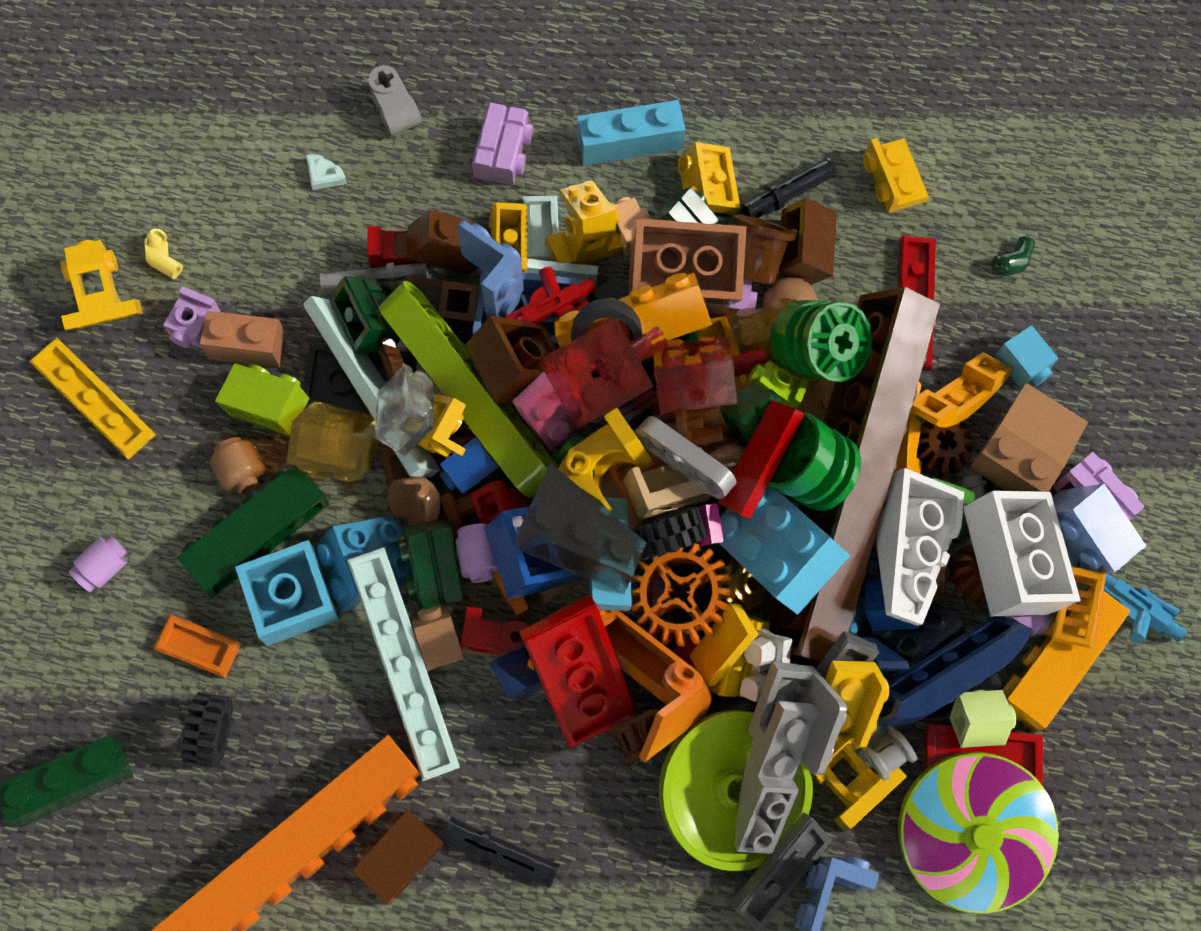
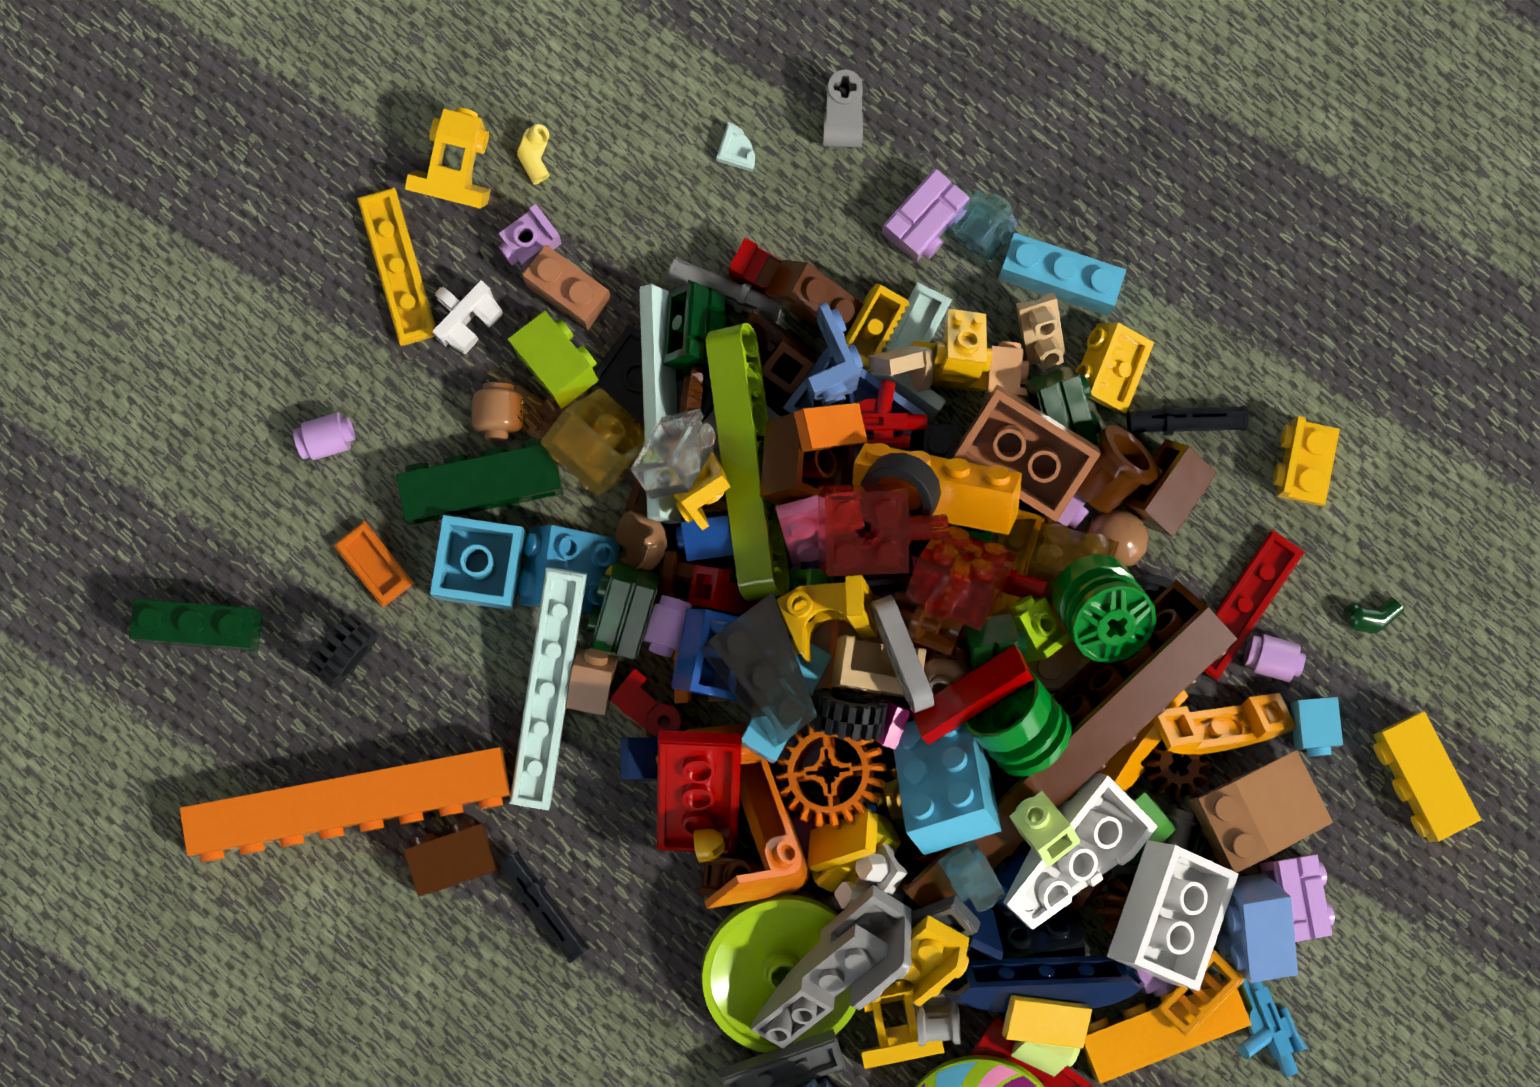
camera: 30 degrees right, 10 degrees up
(164, 404) = (453, 327): none -> white hips
(520, 318) = (830, 427): none -> orange tile
(550, 127) = (985, 224): none -> clear light blue brick
(559, 246) = (911, 359): none -> tan tile
(612, 715) = (708, 844): none -> yellow hinge
(638, 177) = (1041, 331): none -> tan hips
(849, 608) = (972, 877): none -> clear light blue brick
(883, 533) = (1044, 828): none -> yellowish green brick
(963, 325) = (1274, 657): none -> lavender brick
(977, 696) = (1046, 1021): none -> yellow tile
(1132, 352) = (1425, 778): none -> yellow brick

